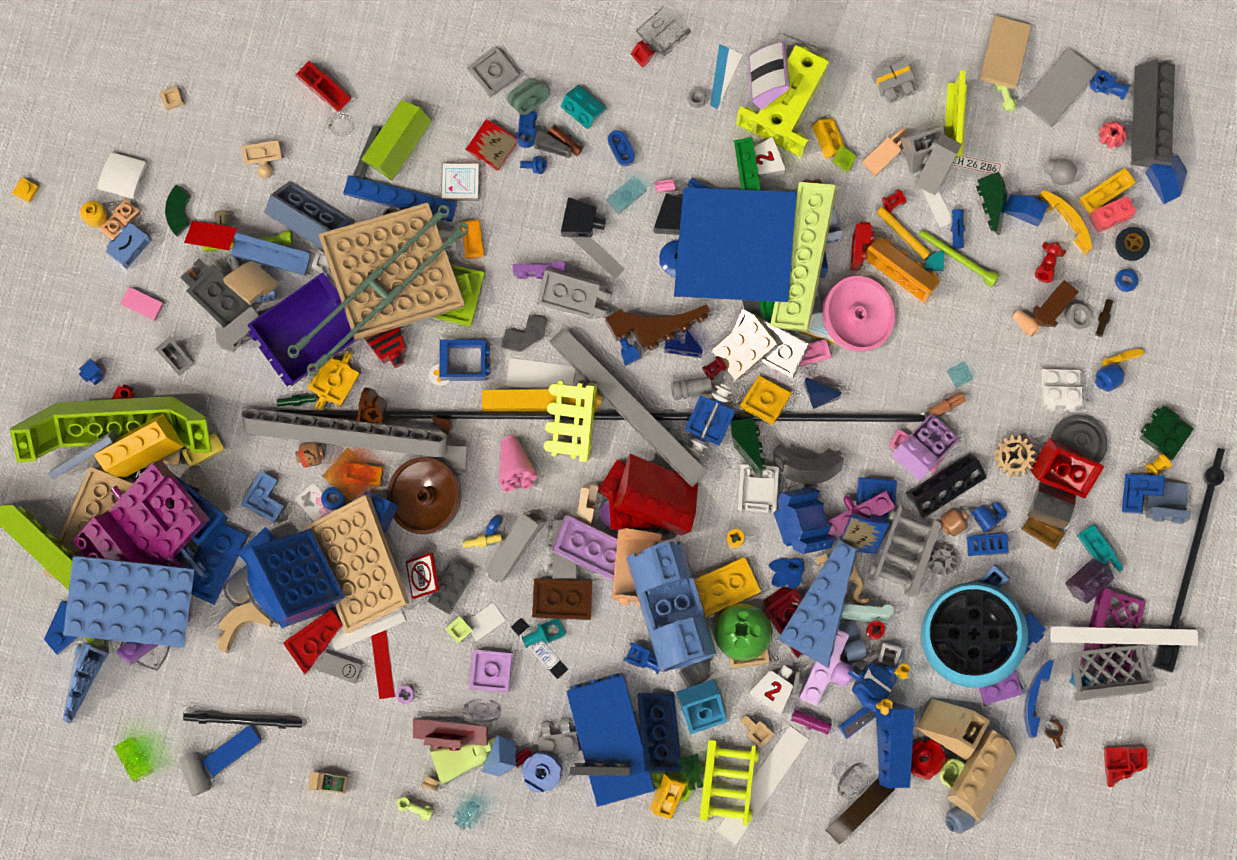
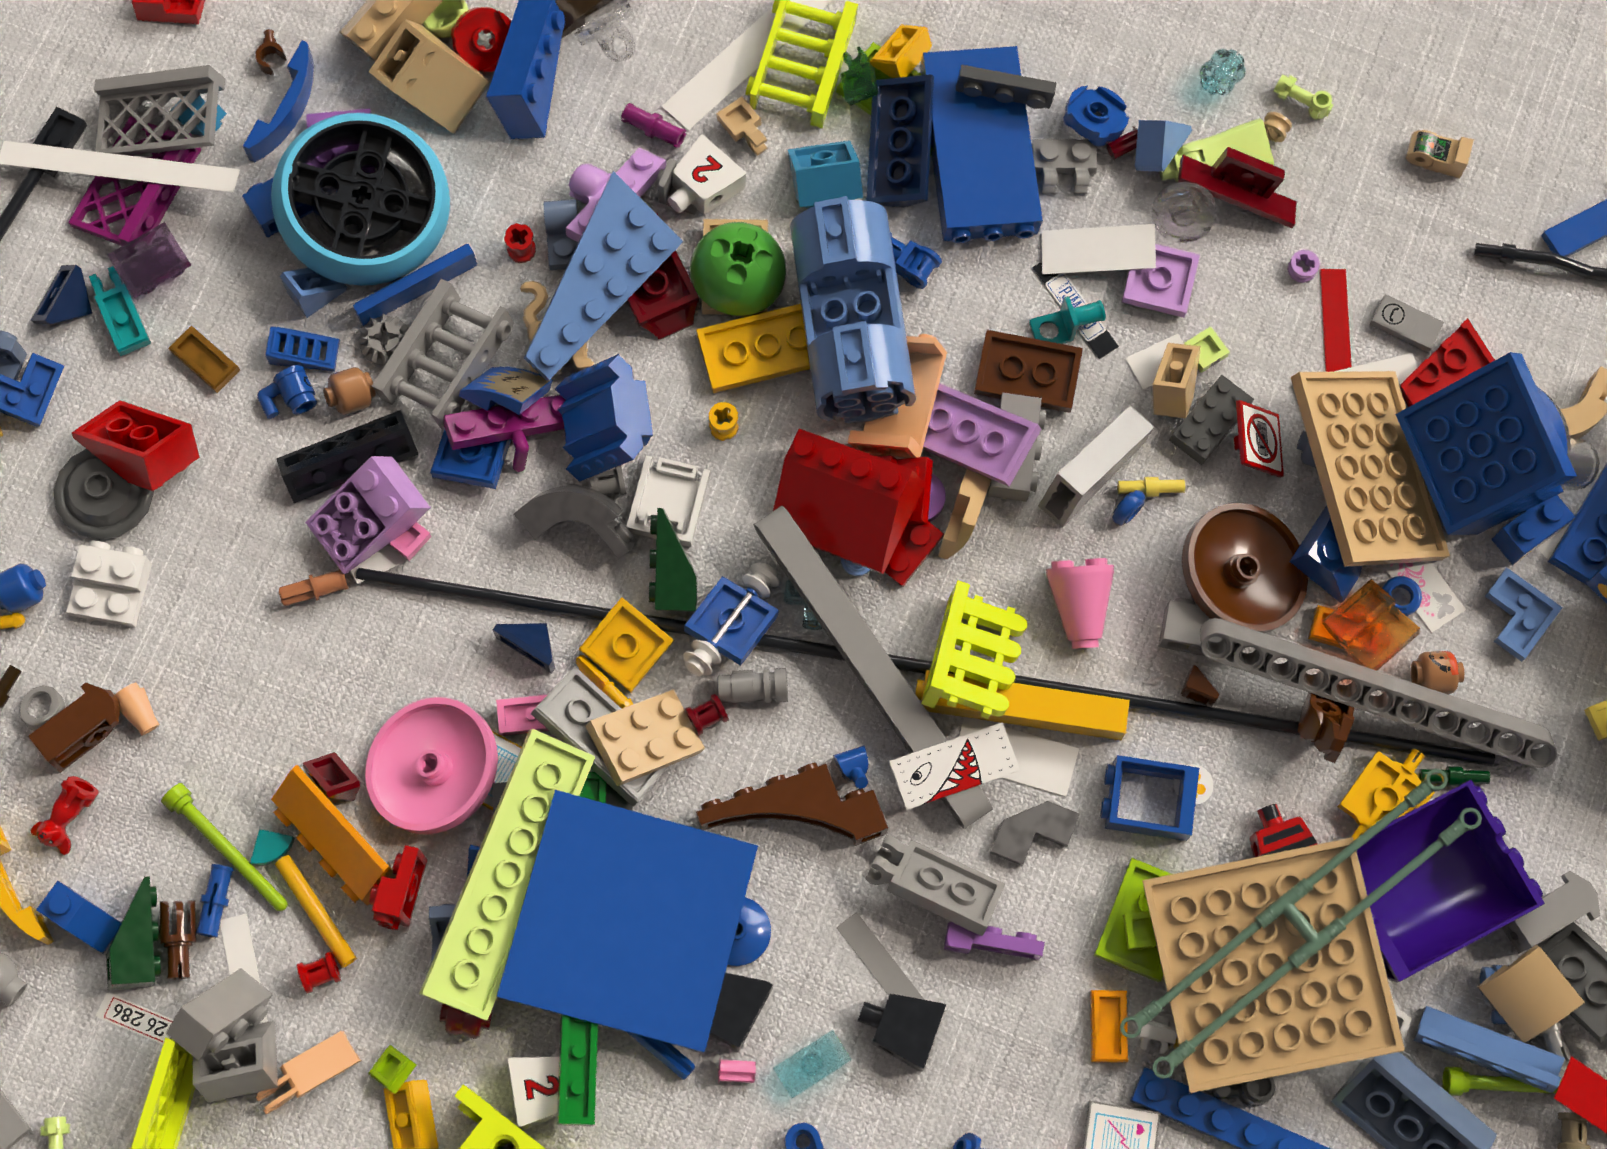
camera: 175 degrees left, 5 degrees down
(475, 605) = (1176, 380): none -> tan slope
(530, 683) = (1098, 249): none -> white sticker
(573, 356) = (954, 766): none -> white sticker
(689, 348) = (746, 755): clear blue slope -> none
(771, 375) = (602, 682): none -> yellow piece
(785, 574) = (651, 352): blue plate -> none
(856, 722) = (580, 119): slope -> none
(867, 612) = (526, 268): light aqua plate -> none
(875, 684) = (541, 149): blue torso -> none
(892, 646) = (502, 214): flat silver slope -> none
(911, 300) = (333, 777): none -> dark red slope
(931, 594) = (415, 284): none -> blue tile
(960, 374) = (277, 638): clear light blue tile -> none
(971, 205) = (178, 942): none -> reddish brown arm
(1010, 461) = (210, 468): tan gear -> none
(1052, 505) = (176, 388): dark grey slope -> none
(1134, 553) = (65, 298): none -> dark blue slope

